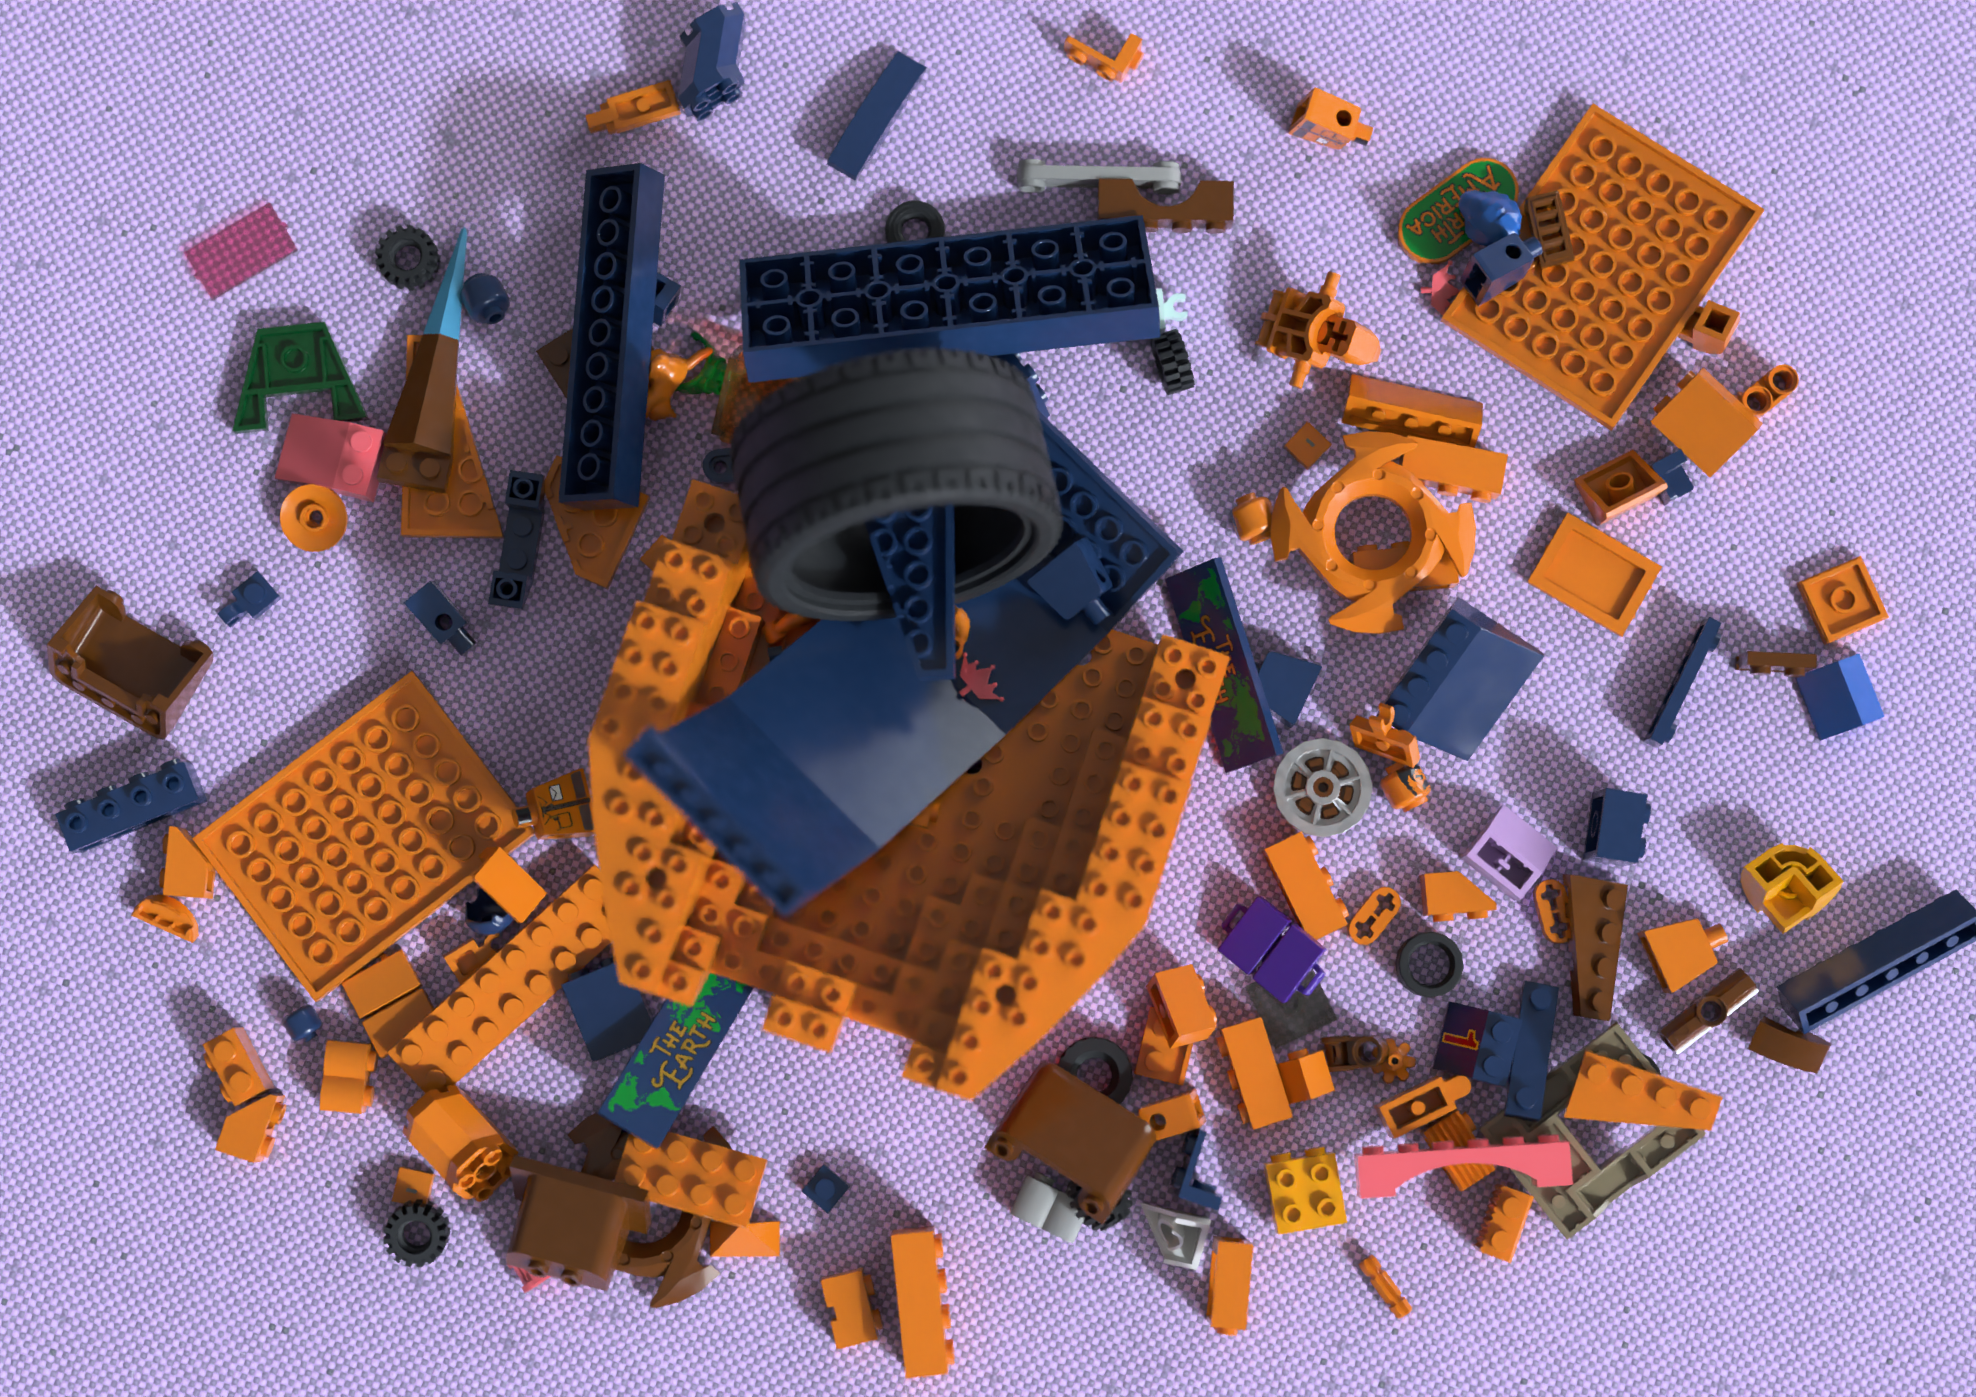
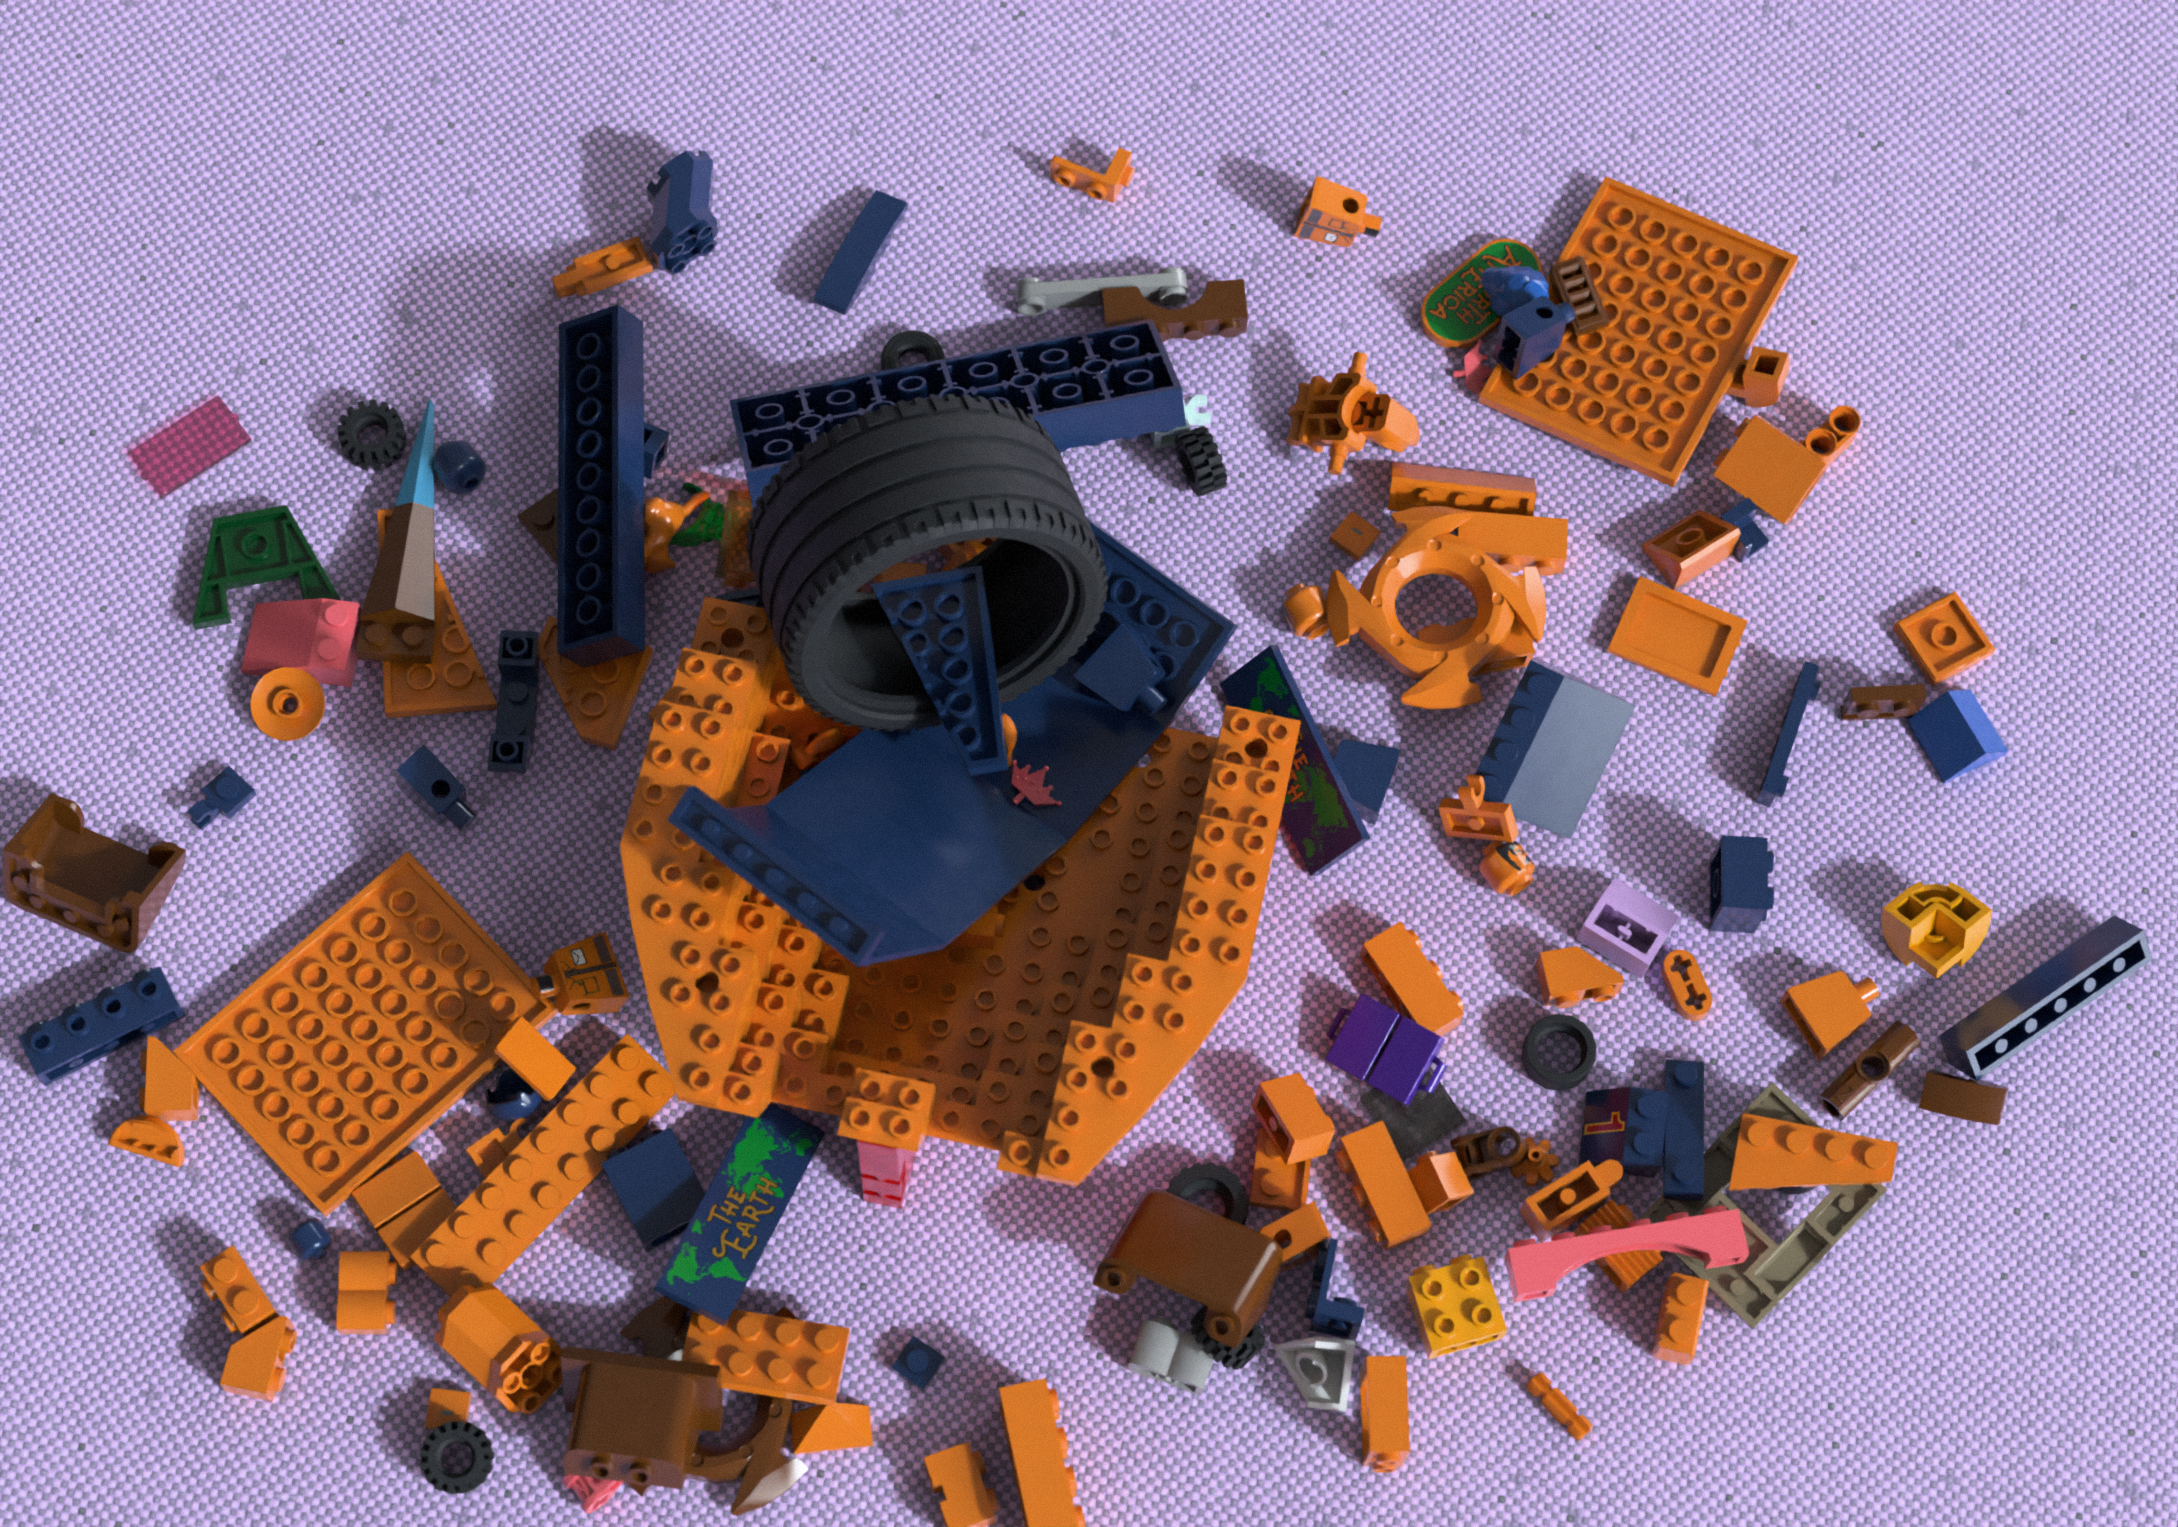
camera: 10 degrees left, 15 degrees down
(1322, 787) = (1417, 878): flat silver piece -> none
(1380, 921) = (1498, 1013): orange beam -> none
(1596, 930) = (1735, 1009): reddish brown wing -> none

